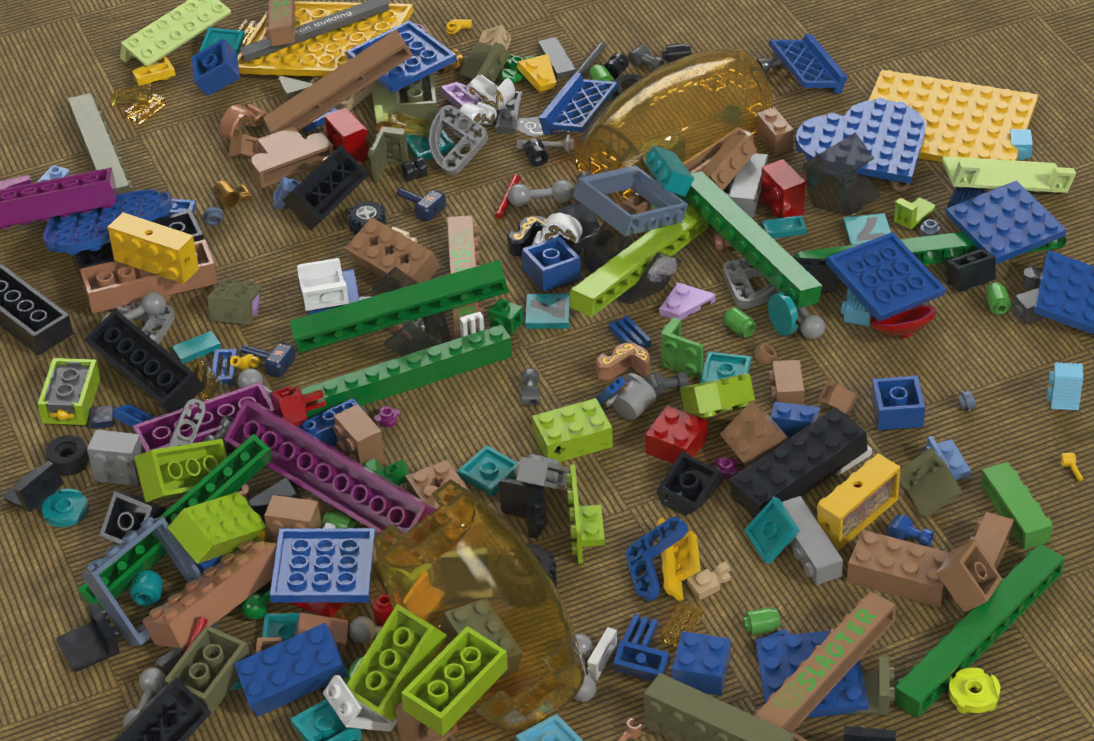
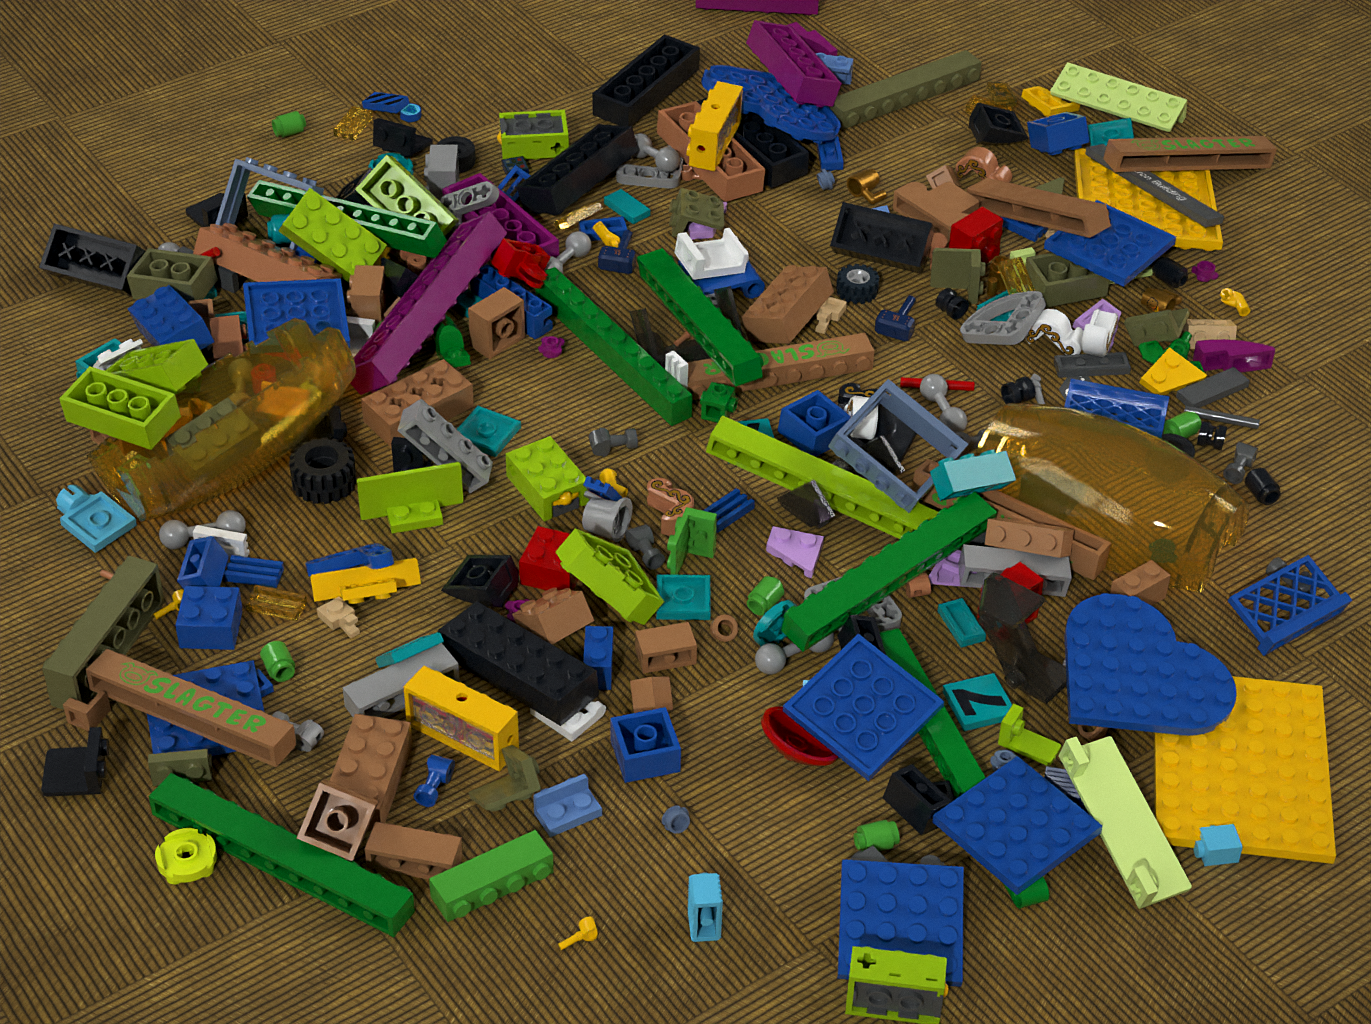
camera: 75 degrees right, 0 degrees up
(182, 105) = (995, 126): none -> black slope
(526, 37) = (1233, 353): none -> magenta slope
(579, 396) = (608, 476): none -> yellow arm
(848, 604) = (306, 734): none -> light grey leg

